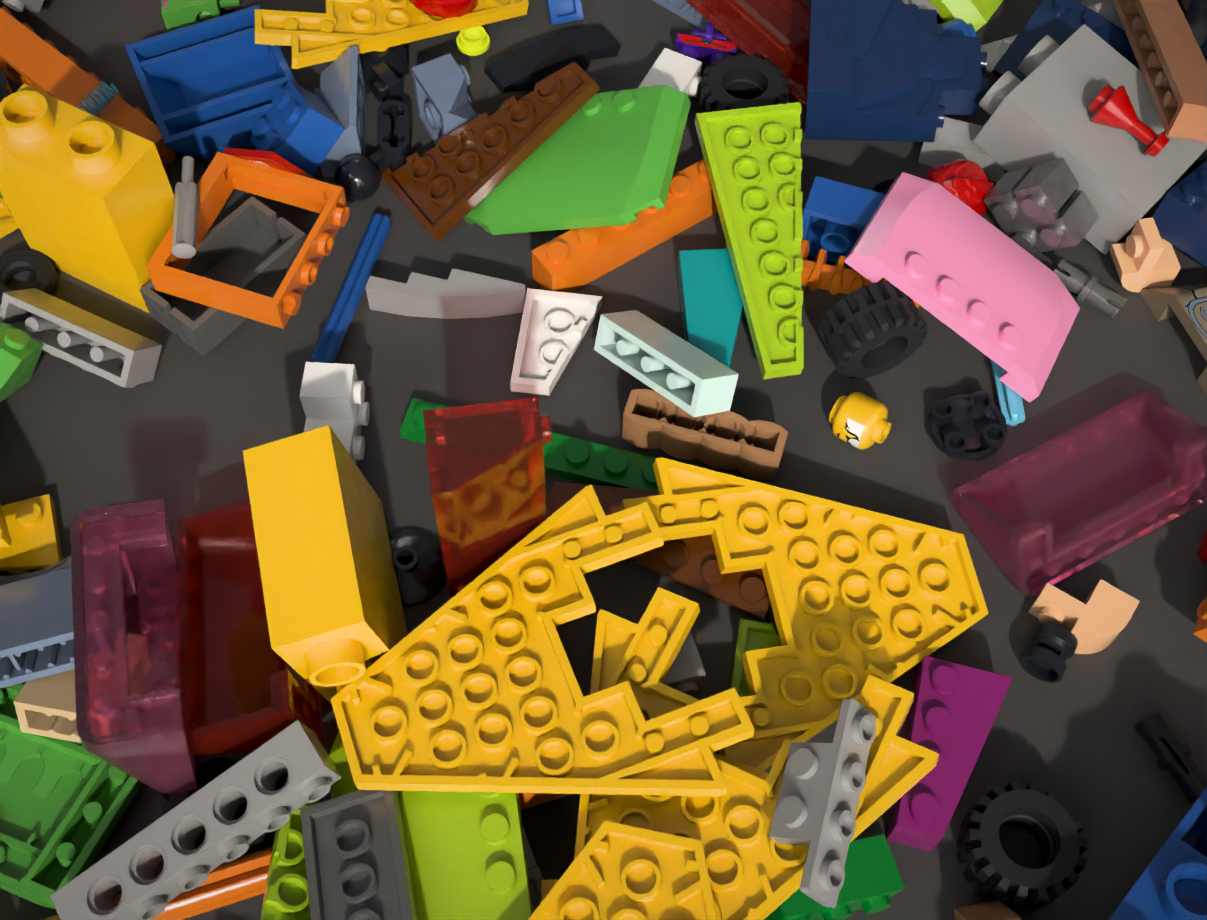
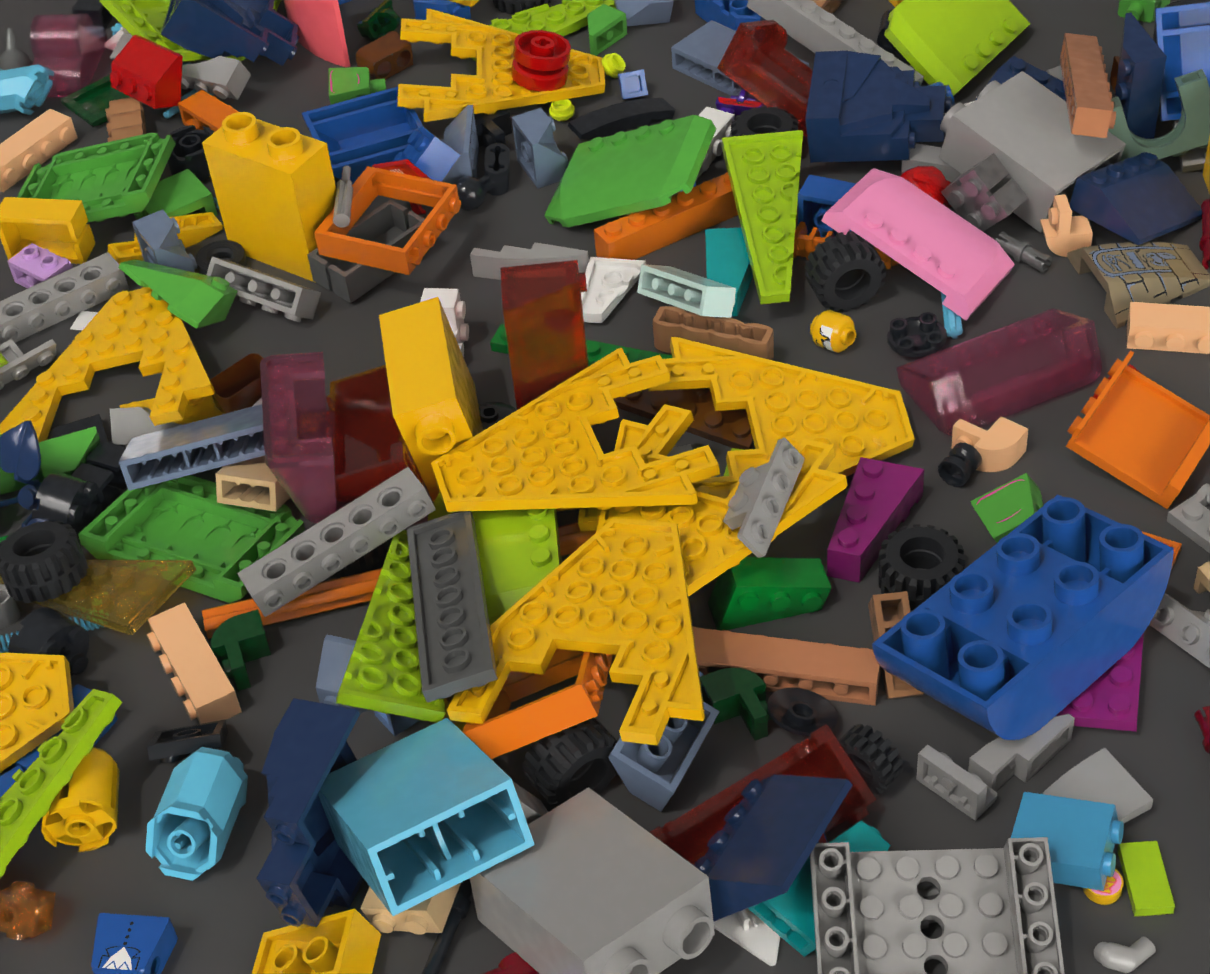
camera: 10 degrees right, 15 degrees down
(35, 516) = (238, 385): none -> reddish brown piece
(352, 289) = (462, 258): blue axle -> none
(480, 154) = (562, 169): reddish brown wing -> none
(1115, 110) = (1035, 121): red piece -> none
(1136, 754) = (1008, 505): none -> bright green torso

